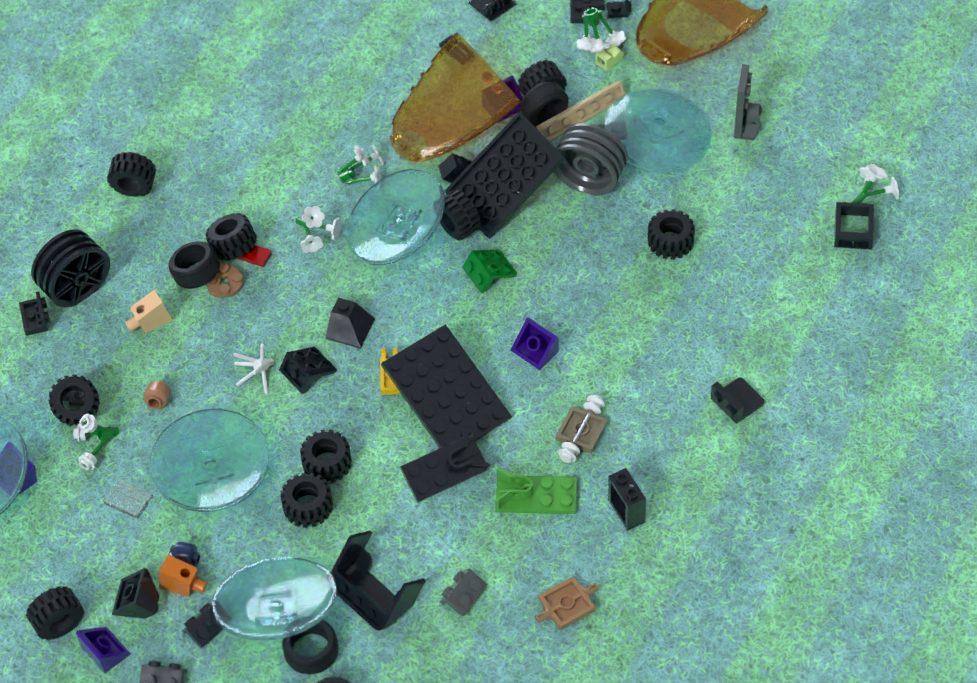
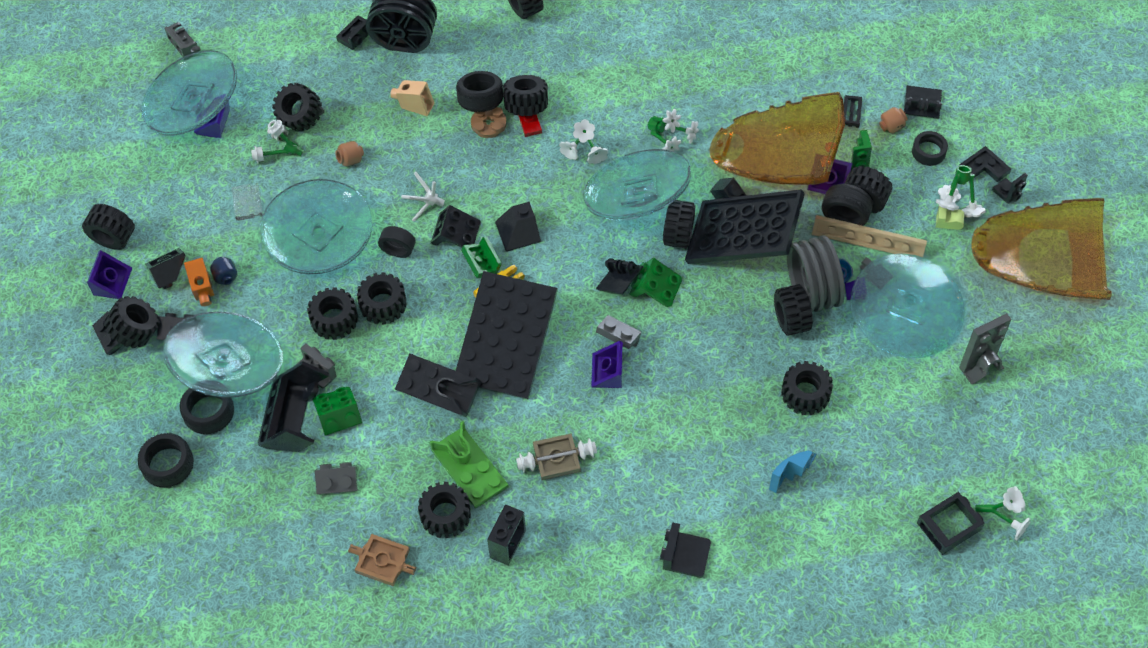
camera: 50 degrees right, 5 degrees up
(174, 650) = (131, 322): none -> black tyre
(287, 403) = (396, 241): none -> black tyre
(336, 539) = (313, 356): none -> dark grey bracket
(355, 364) = (481, 257): none -> green bracket
(400, 550) = (337, 410): none -> green bracket
(462, 286) = (620, 276): none -> black hinge
(492, 29) = (893, 120): none -> nougat head
(504, 62) = (862, 152): none -> green bracket
(512, 317) = (619, 331): none -> bracket
(538, 36) = (928, 159): none -> black tyre
(567, 544) = (444, 524): none -> black tyre
(601, 195) = (793, 309): none -> black tyre
(731, 278) = (790, 468): none -> dark azure slope

